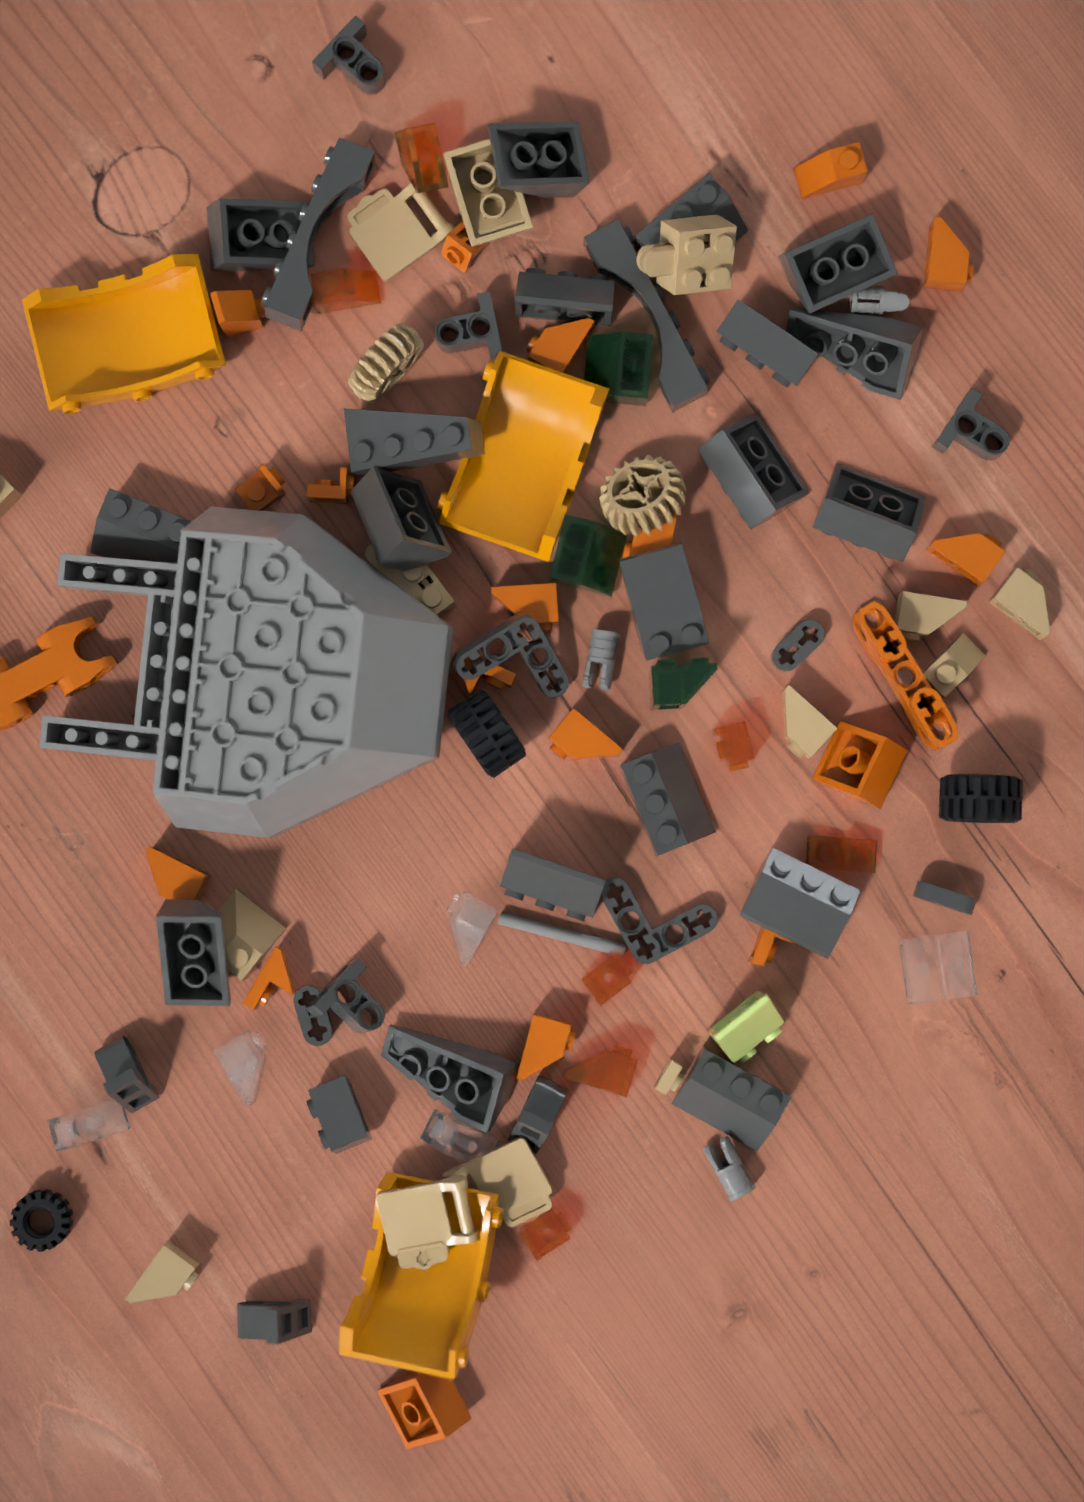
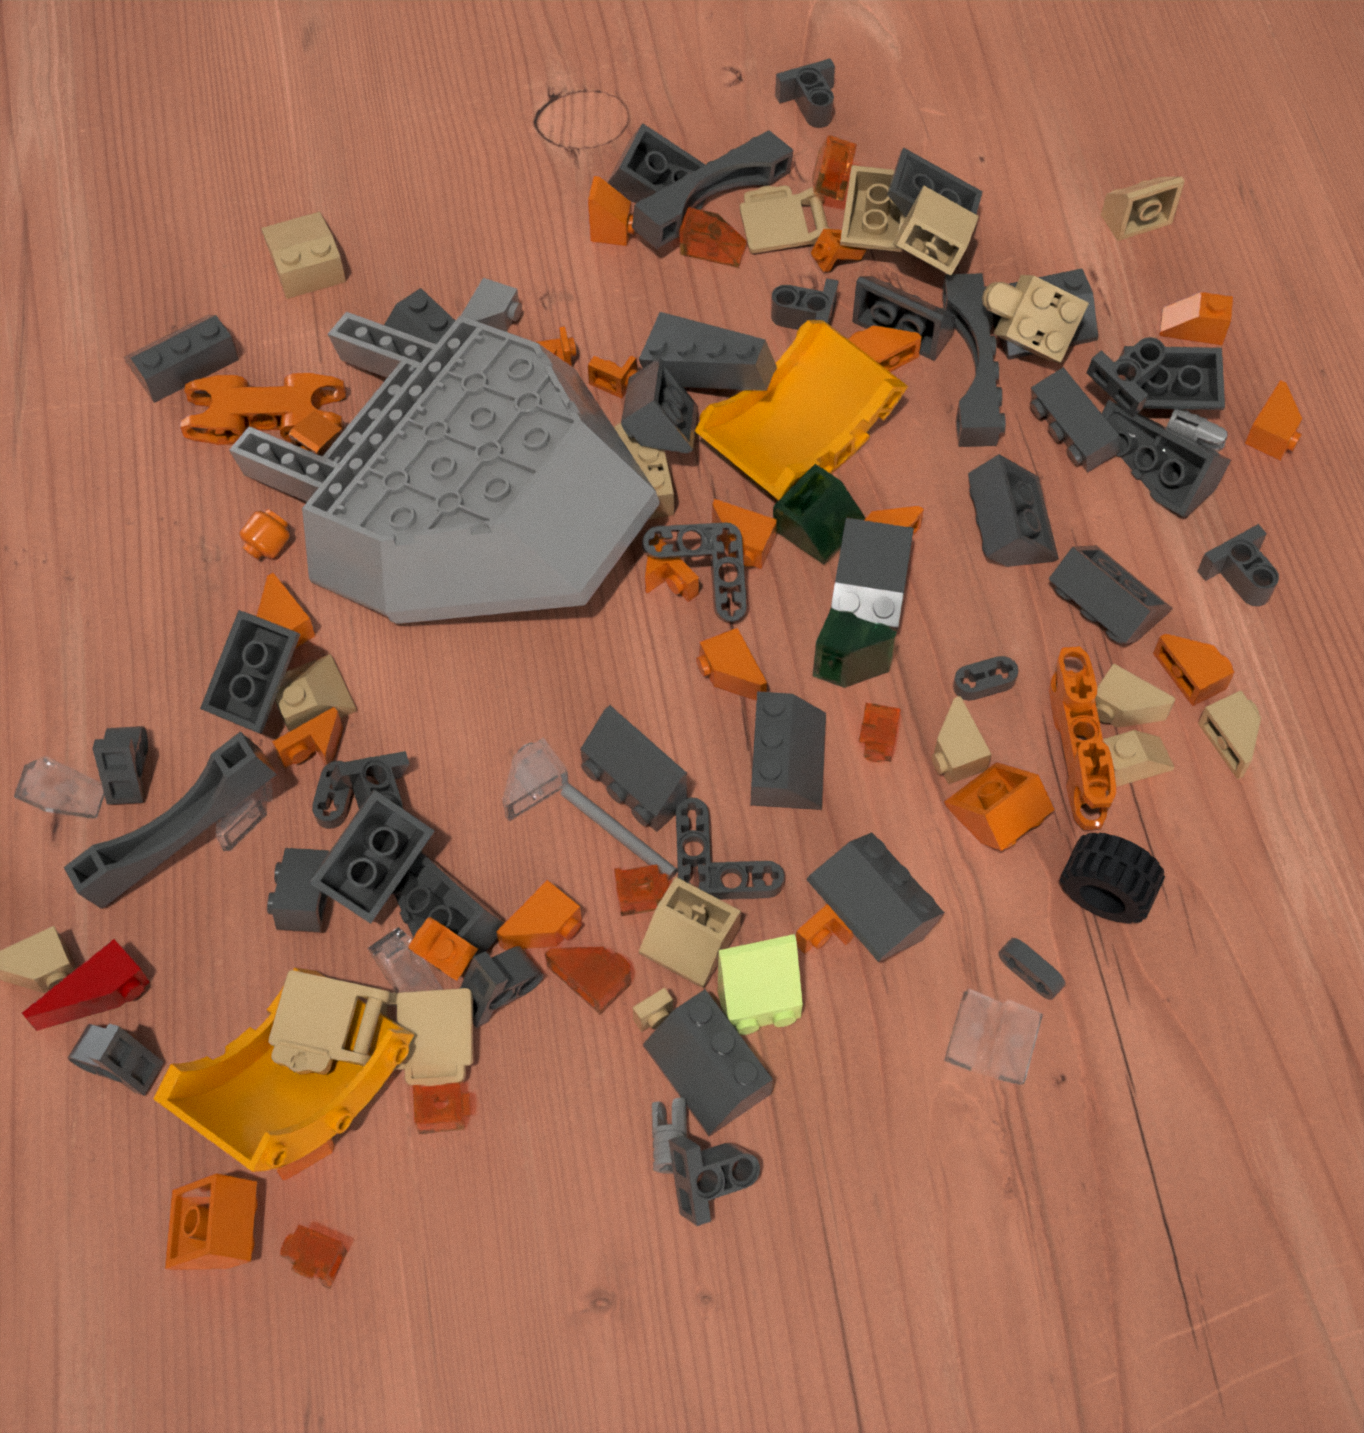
camera: 25 degrees right, 25 degrees down
(110, 698) = (316, 432): none -> orange slope
(113, 806) = (264, 534): none -> orange head
(124, 335) = (505, 198): light orange panel -> none
(180, 472) = (494, 305): none -> light grey slope
(226, 1266) = (94, 987): none -> red slope
(227, 1083) = (117, 864): none -> dark grey arch
(385, 363) = (717, 293): tan gear -> none
(390, 1070) = (371, 856): none -> dark grey slope
(487, 733) = (642, 610): black tyre -> none
(488, 1120) = (442, 948): none -> orange bracket
(513, 1389) = (314, 1254): none -> clear orange brick
(561, 206) = (936, 230): none -> tan slope
(603, 652) = (787, 606): light grey hinge -> none
(620, 364) = (933, 383): clear green slope -> none
(662, 491) = (896, 483): tan gear -> none
(666, 1001) = (689, 932): none -> tan slope
(729, 58) = (1142, 206): none -> tan slope
(778, 1189) = (718, 1177): none -> dark grey tile
(810, 281) = (1134, 366): none -> dark grey tile
(841, 853) = (946, 884): clear orange slope -> none

